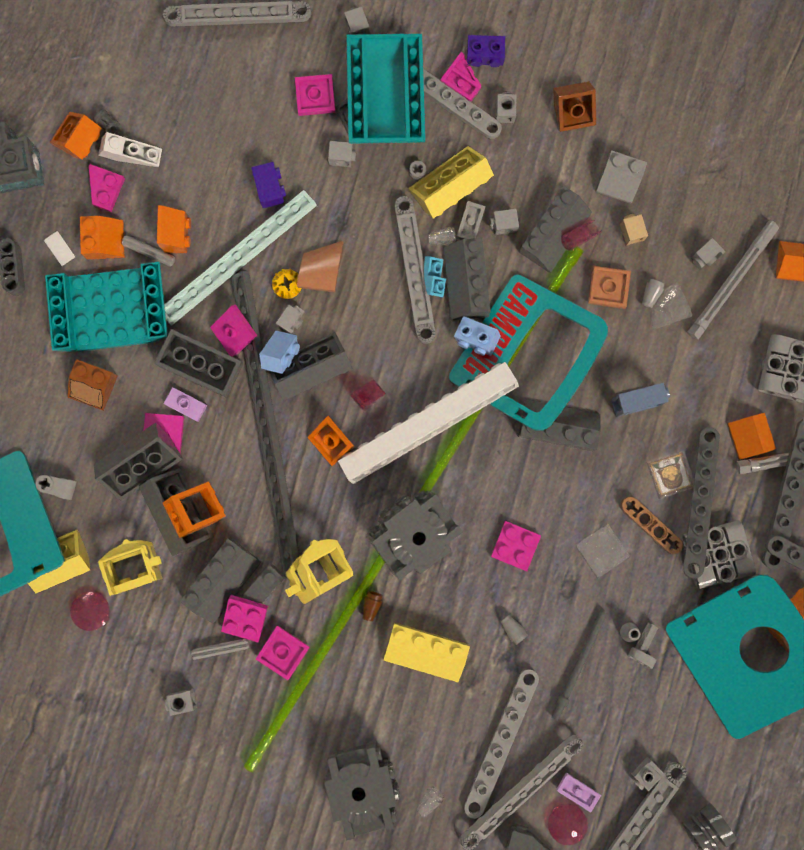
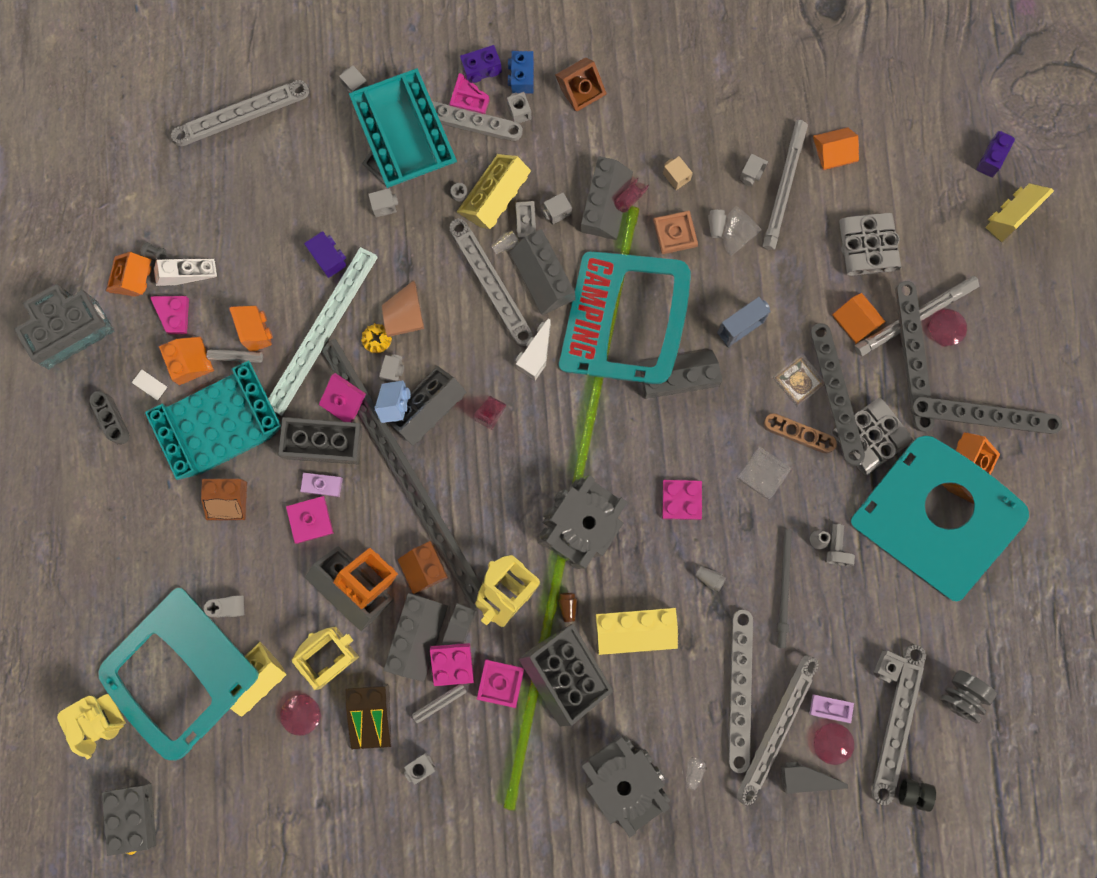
camera: 15 degrees left, 5 degrees down
(137, 462) = (294, 554): dark grey slope -> none
(151, 636) = (368, 717): none -> dark brown slope
(251, 518) = (422, 567): none -> dark orange slope
(315, 95) = (339, 159): dark pink plate -> none
(330, 441) = (471, 466): orange slope -> none
(345, 669) = (566, 675): none -> dark grey slope
(428, 423) = (556, 415): white brick -> none
(429, 359) = (535, 356): none -> white slope
(432, 275) = (513, 286): medium azure slope -> none
(477, 336) = (571, 320): light blue brick -> none
(522, 73) = (521, 72): none -> blue brick
(621, 177) = (647, 130): light grey slope -> none

